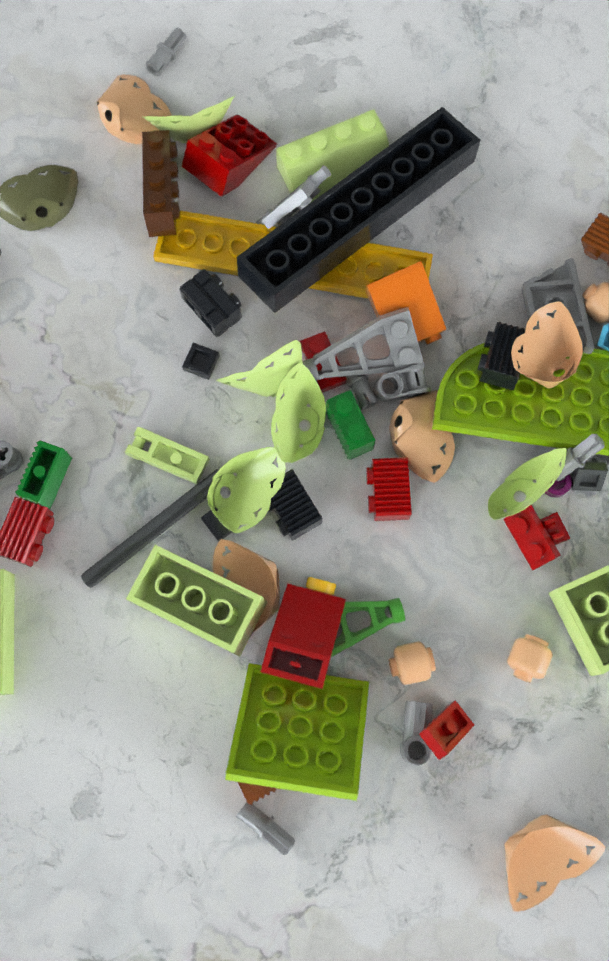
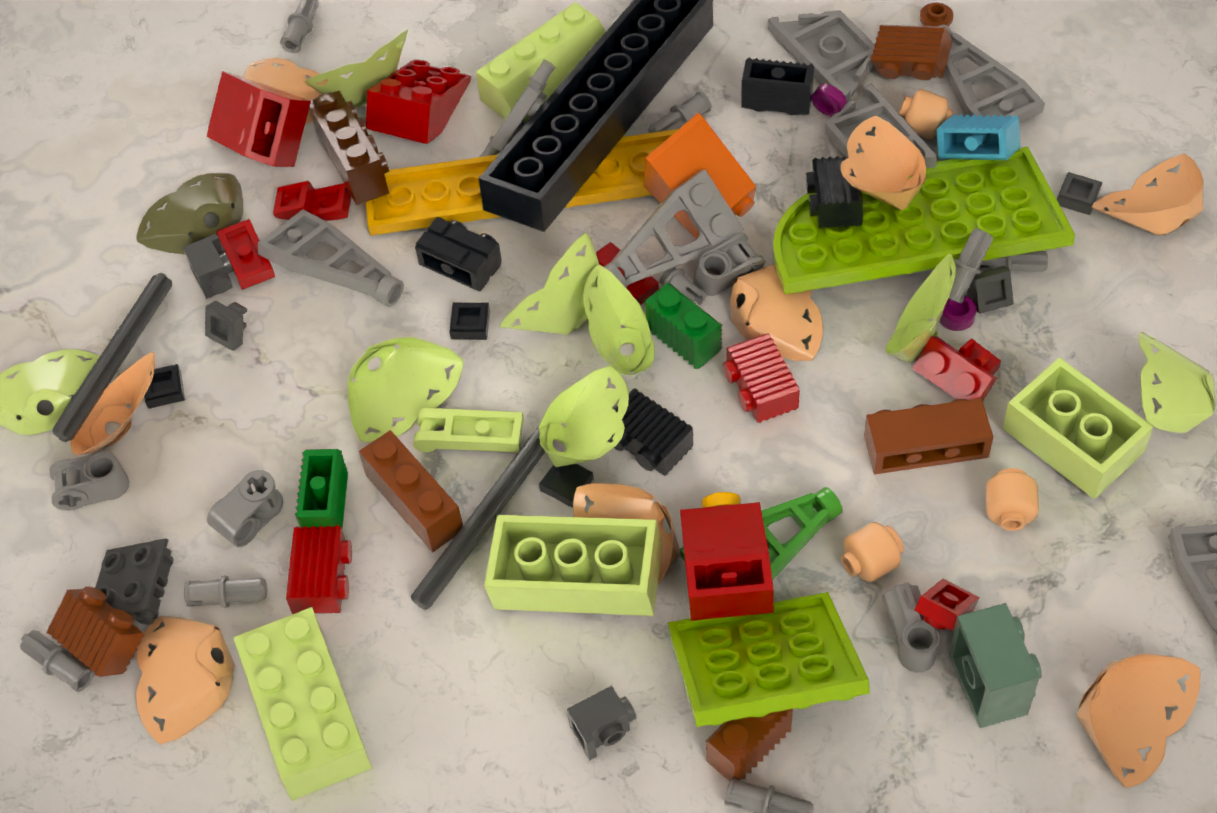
camera: 15 degrees left, 20 degrees down
(26, 303) = (225, 324): none -> dark grey tile
(30, 249) = (209, 265): none -> dark grey brick
(59, 247) = (241, 248): none -> red plate
(103, 136) = (258, 120): none -> red slope
(103, 245) = (305, 231): none -> light grey plate
(107, 492) = (411, 490): none -> dark orange brick
(120, 217) = (326, 202): none -> red slope
(128, 402) = (399, 384): none -> yellowish green piece
(175, 724) = (600, 720): none -> dark grey brick
(418, 237) = (682, 114): none -> light grey axle
(460, 794) = (994, 664): none -> sand green brick
(491, 581) = (928, 435): none -> dark orange brick
(499, 239) = (777, 86): none -> black brick
(534, 262) = (828, 99): none -> magenta tile
(554, 215) = (831, 44): none -> light grey wing

